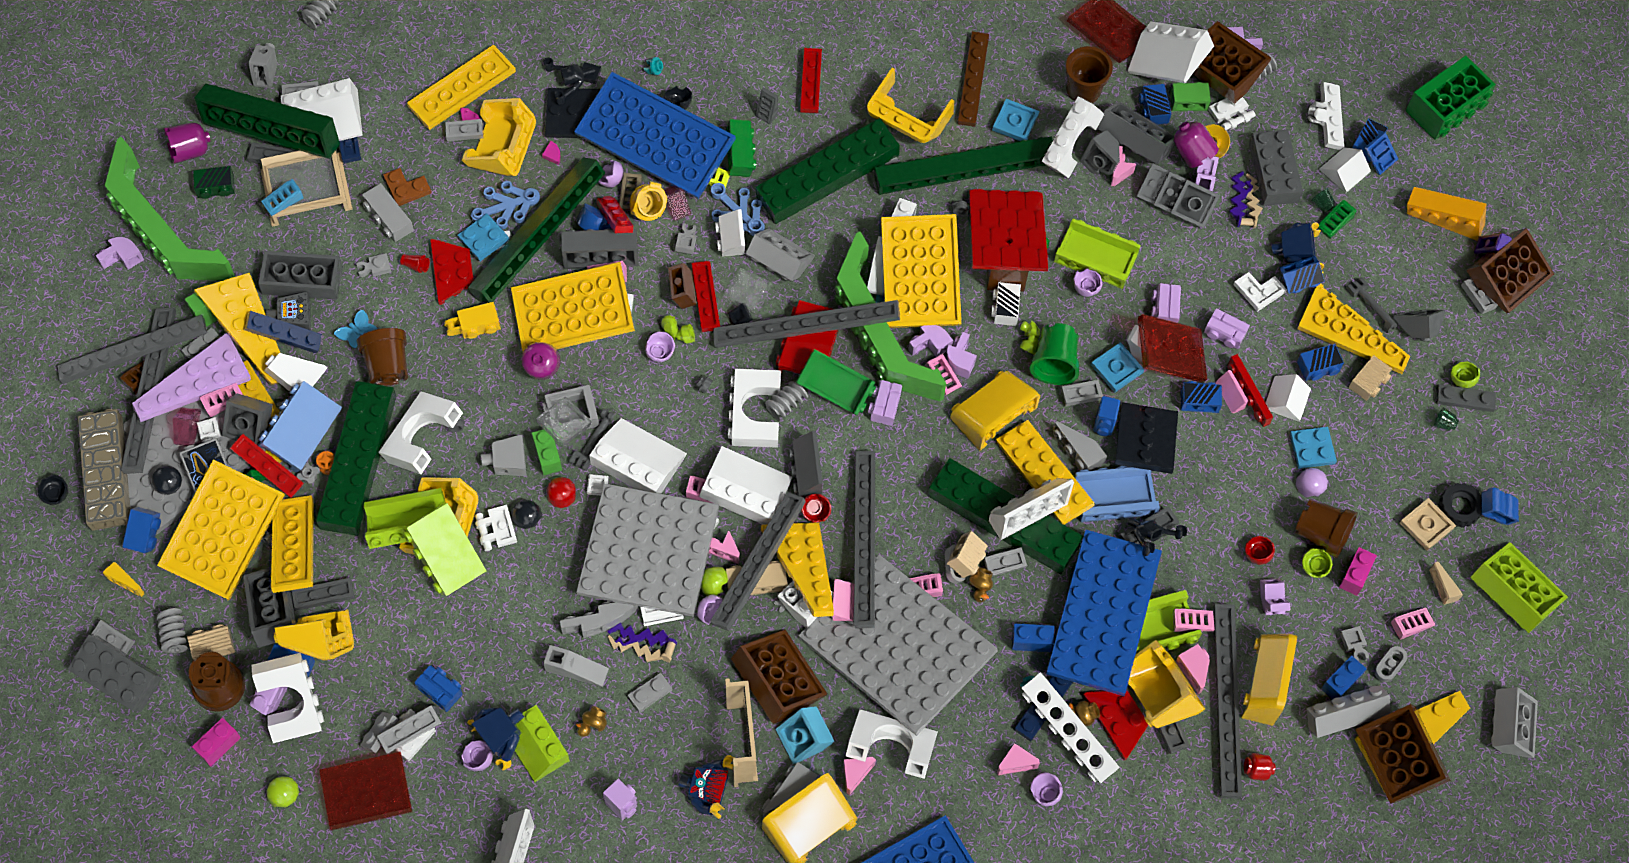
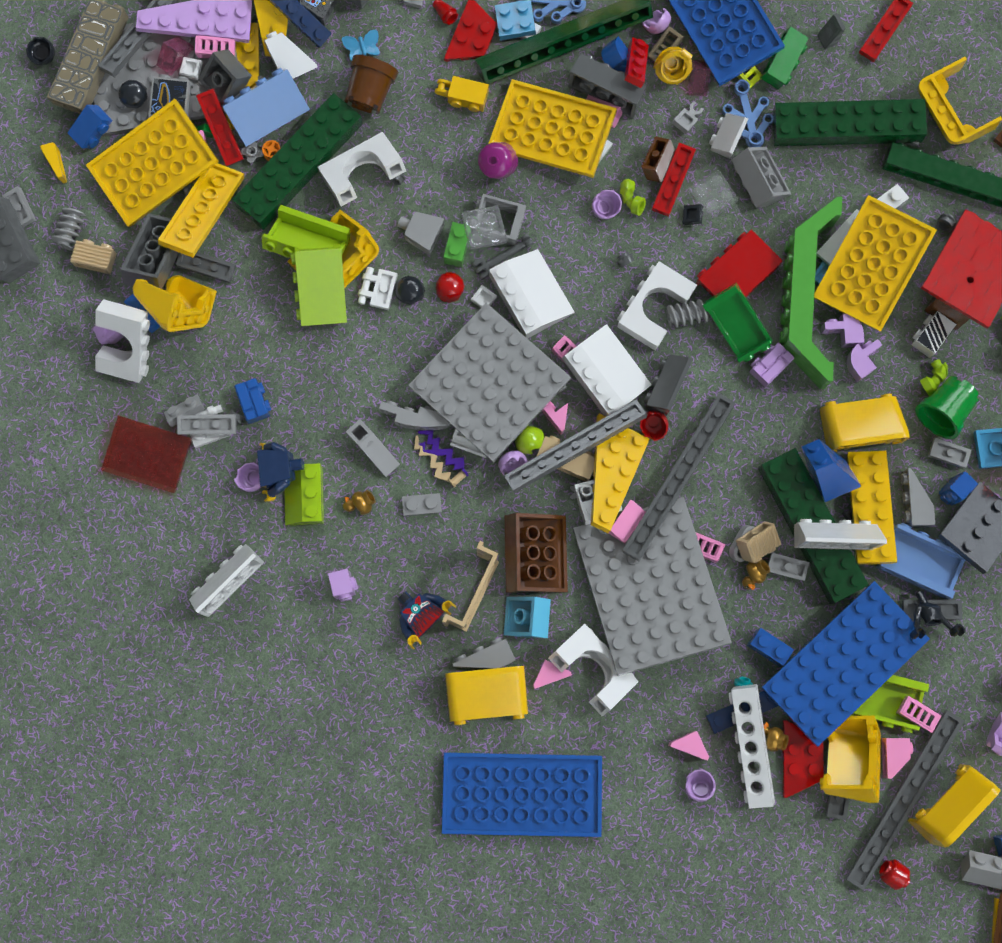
camera: 30 degrees right, 15 degrees up
(213, 695) = (88, 296): reddish brown piece -> none
(216, 742) = (51, 343): dark pink brick -> none
(282, 792) = (82, 415): lime hair -> none
(807, 323) = (745, 256): dark grey plate -> none
(948, 372) = (844, 362): bright pink slope -> none
(989, 460) = (829, 470): none -> blue slope

